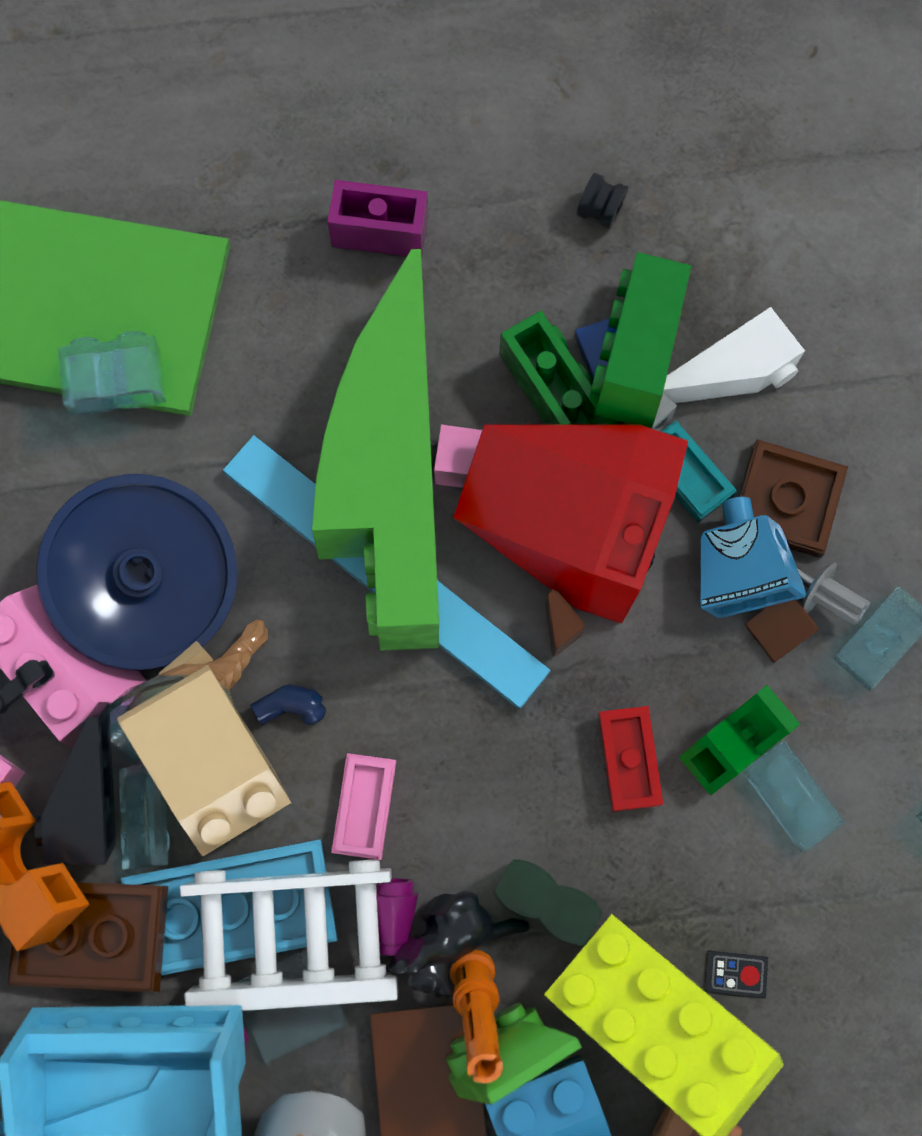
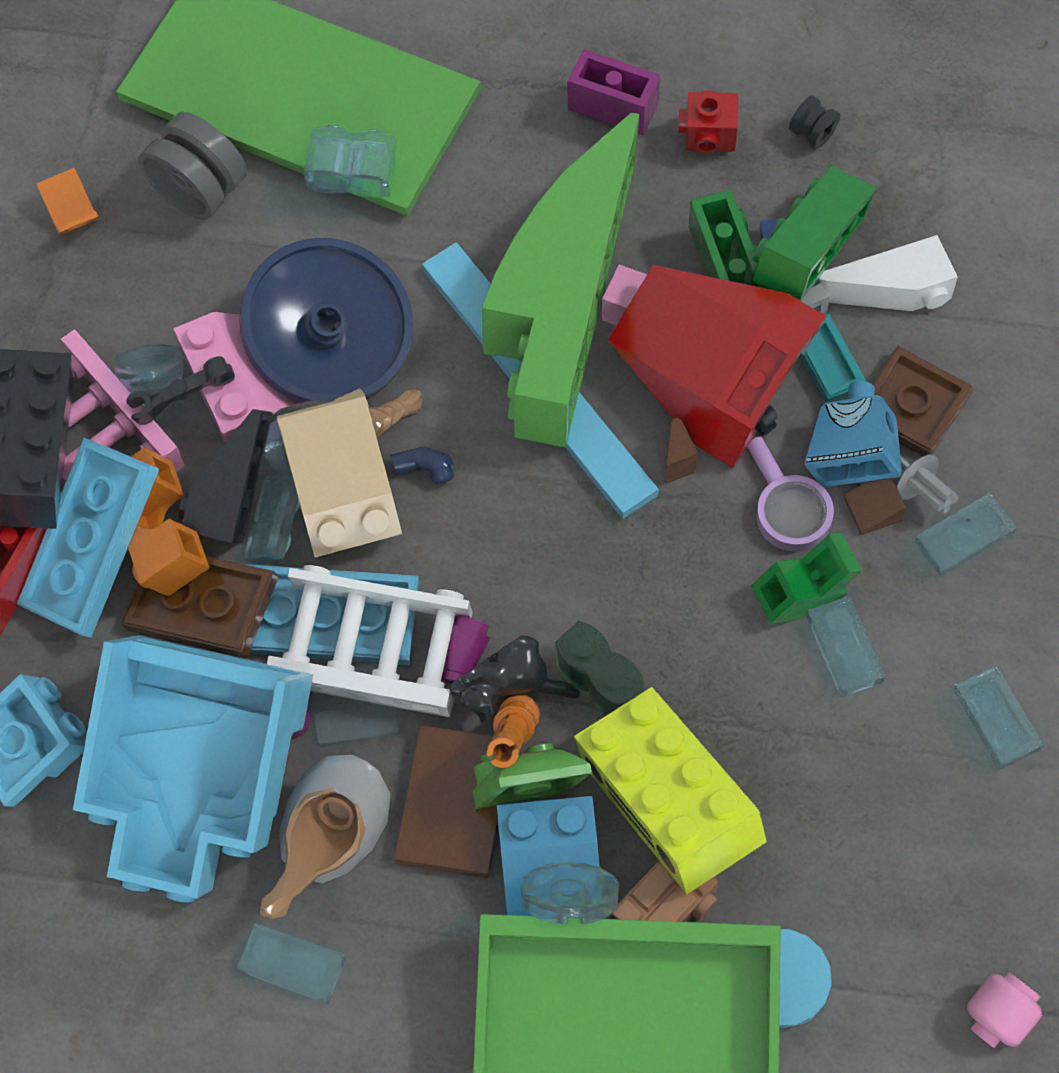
camera: 20 degrees right, 10 degrees down
(364, 807) = (465, 557): bright pink tile -> none
(492, 228) = (710, 121): none -> red brick
(630, 759) = (707, 577): red plate -> none
(697, 654) = (793, 508): none -> piece
(736, 974) = (756, 781): black sticker -> none

